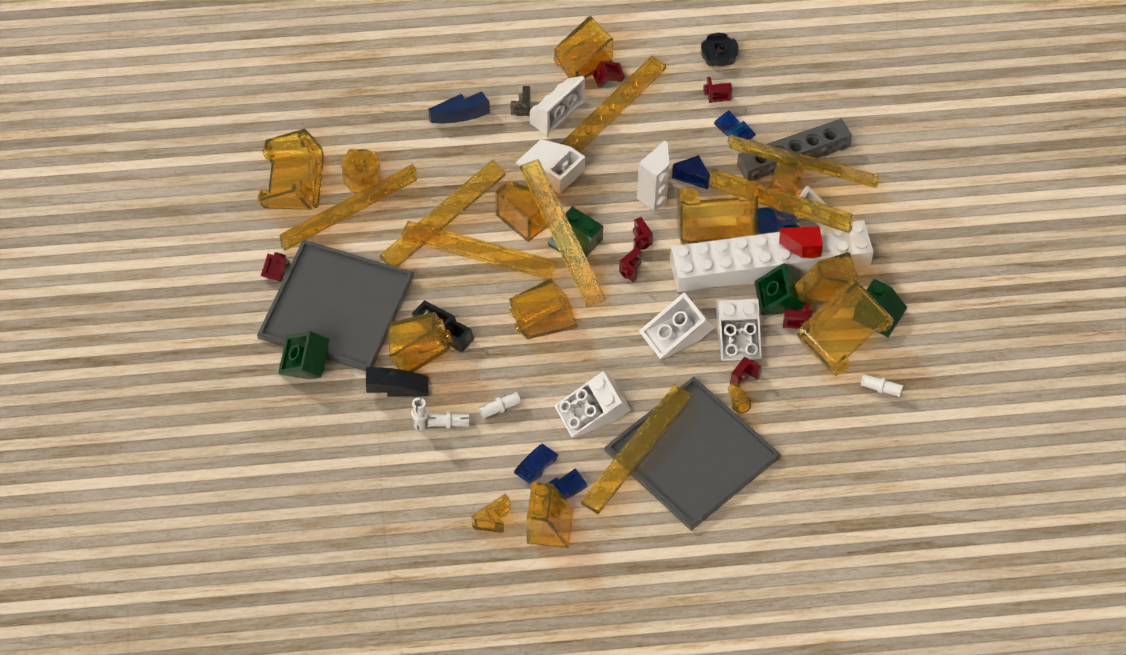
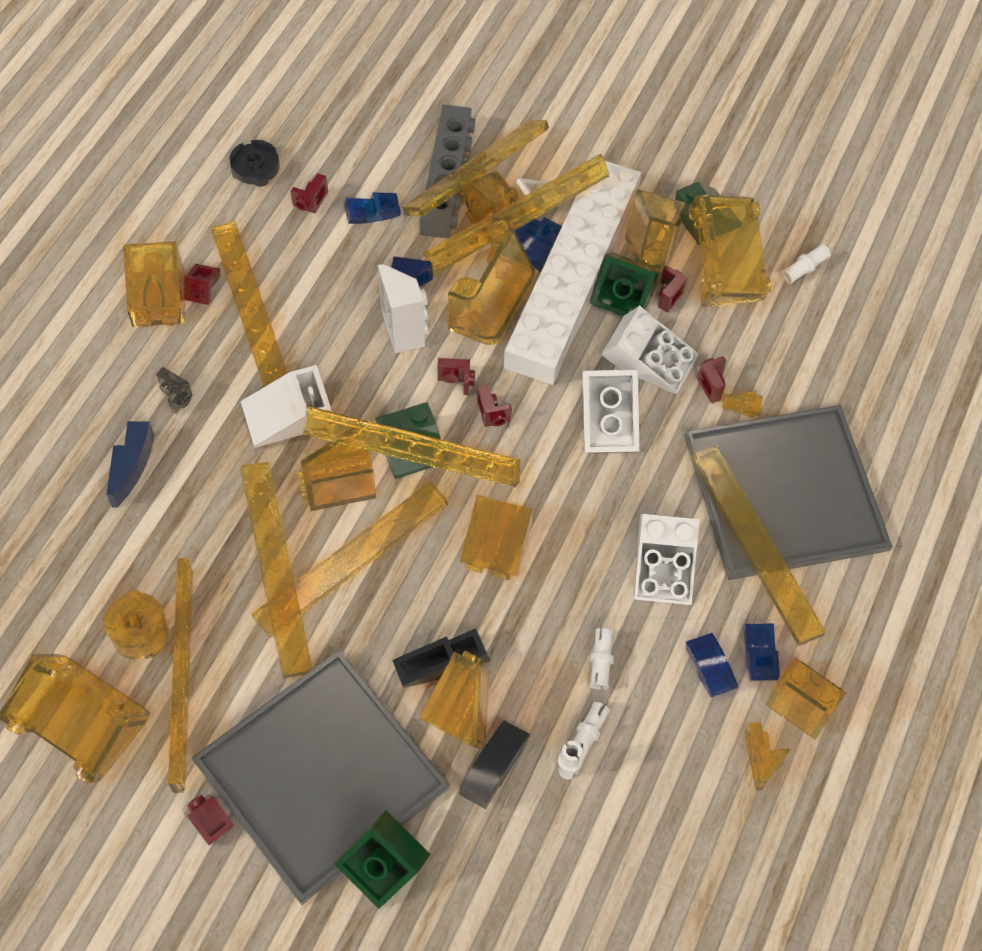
camera: 60 degrees left, 5 degrees up
(558, 104) = (207, 354): white slope -> none
(802, 241) = (597, 220): red slope -> none

